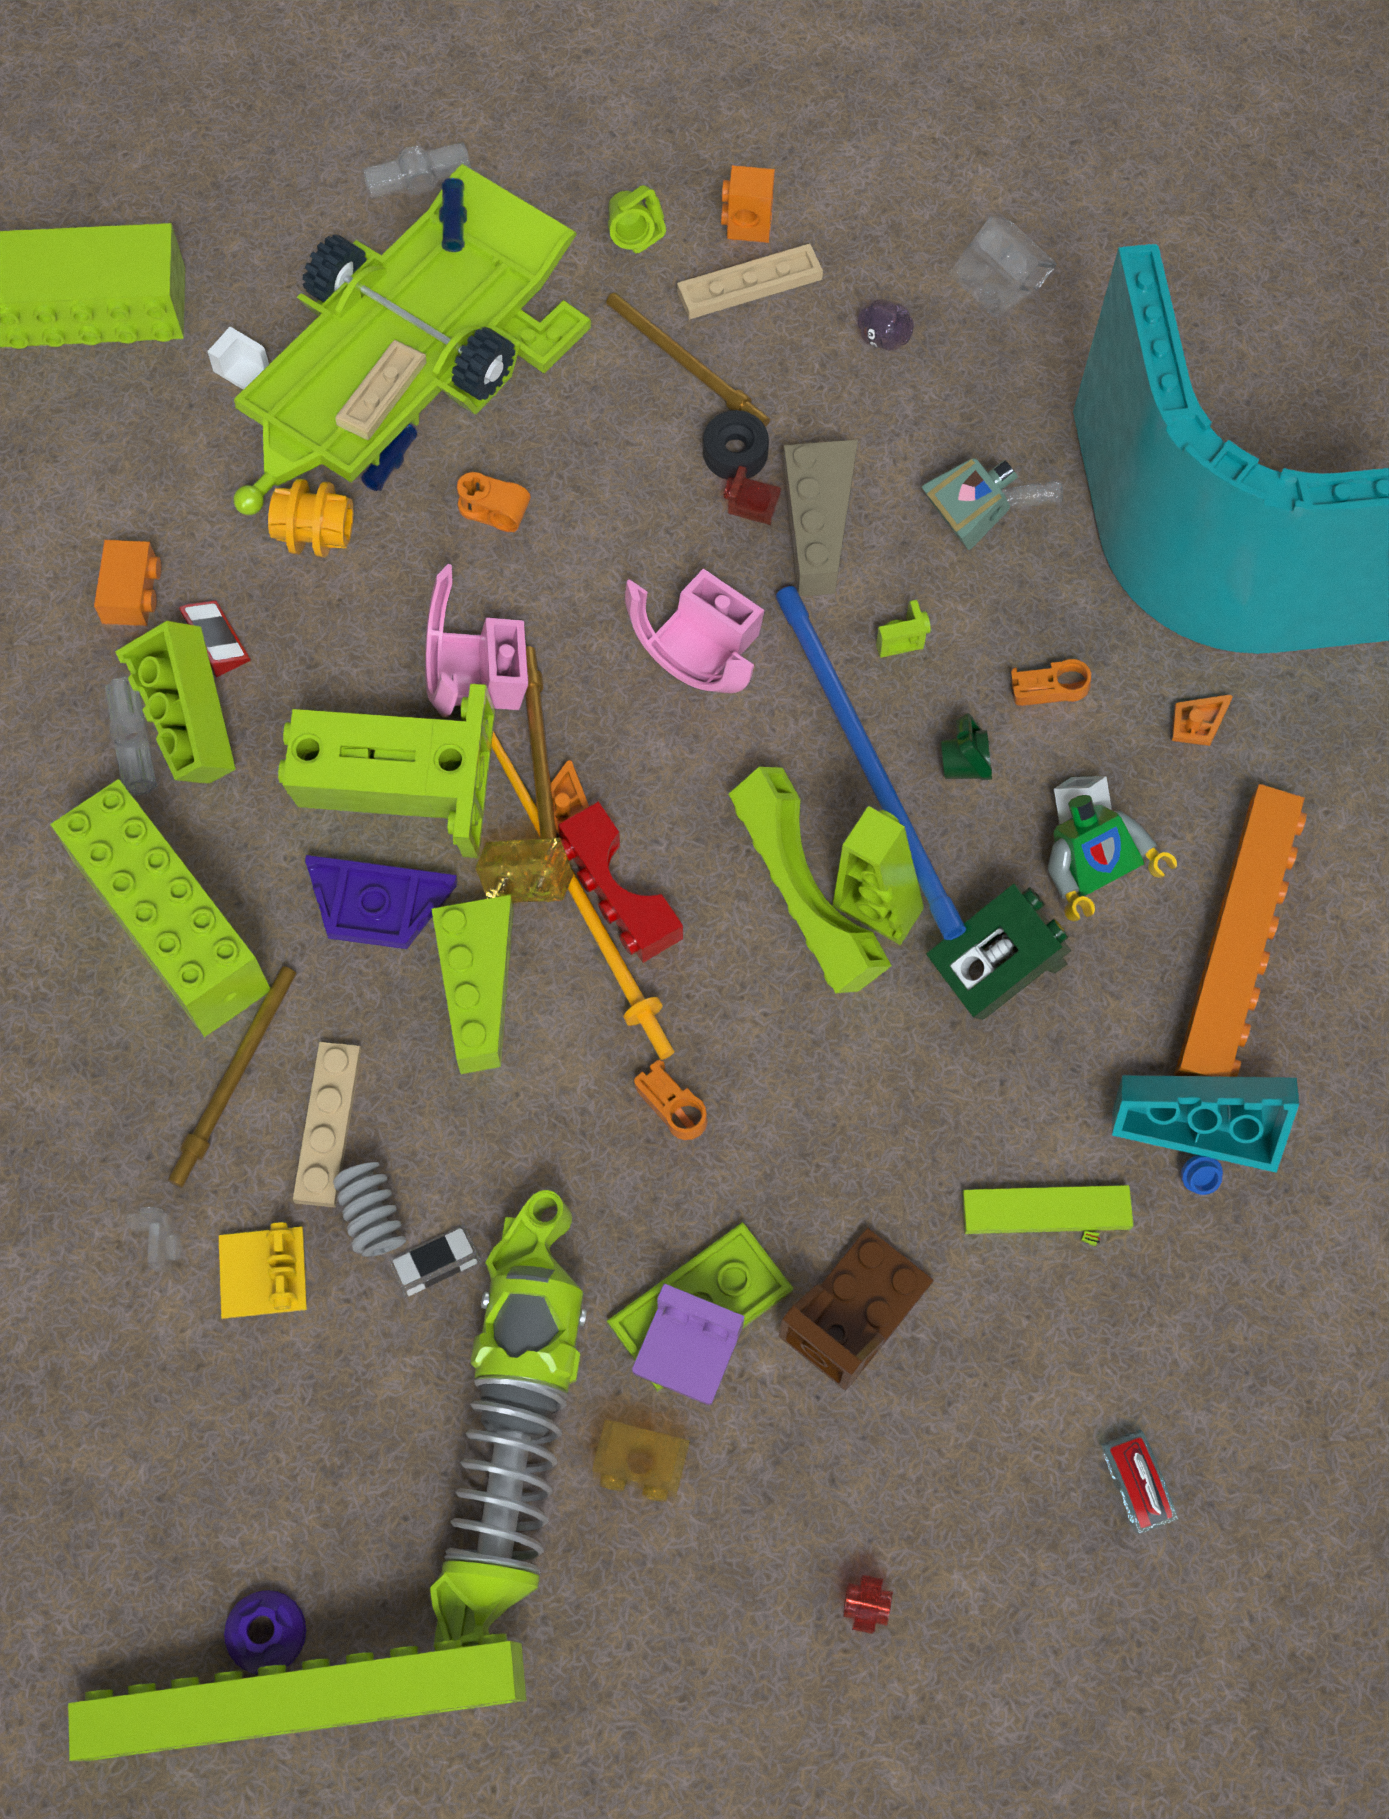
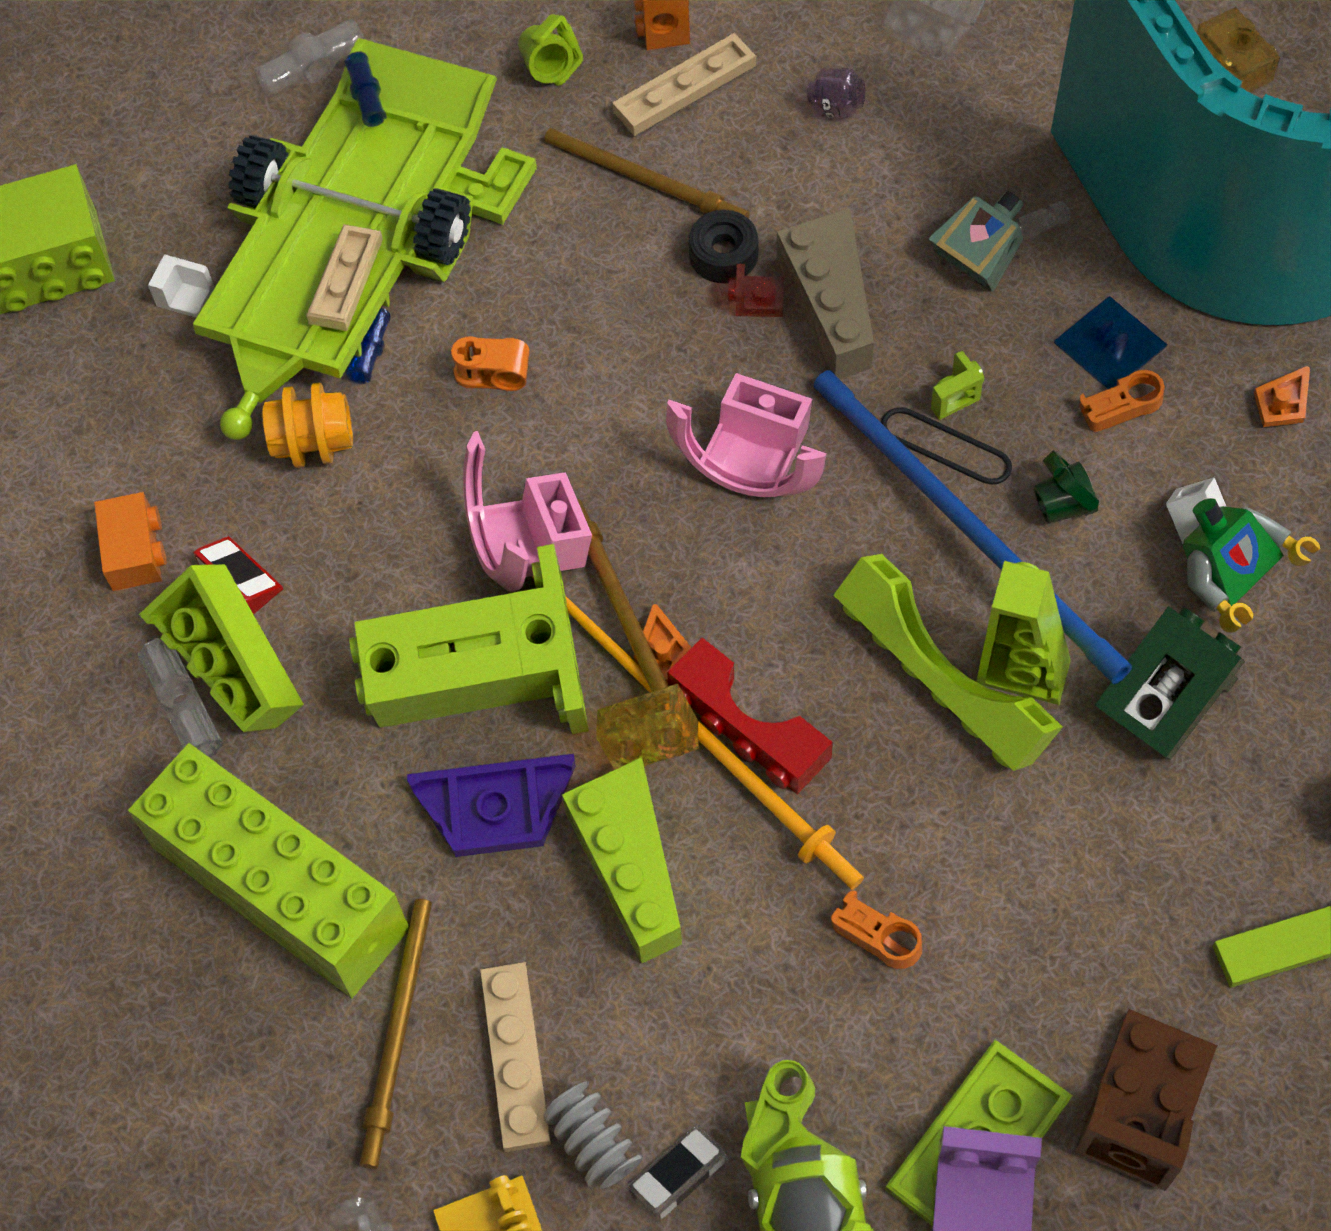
camera: 10 degrees left, 5 degrees down
(923, 702) = (888, 414): none -> black piece
(1059, 626) = (1110, 343): none -> clear blue piece
(1271, 379) = (1240, 48): none -> clear yellow brick

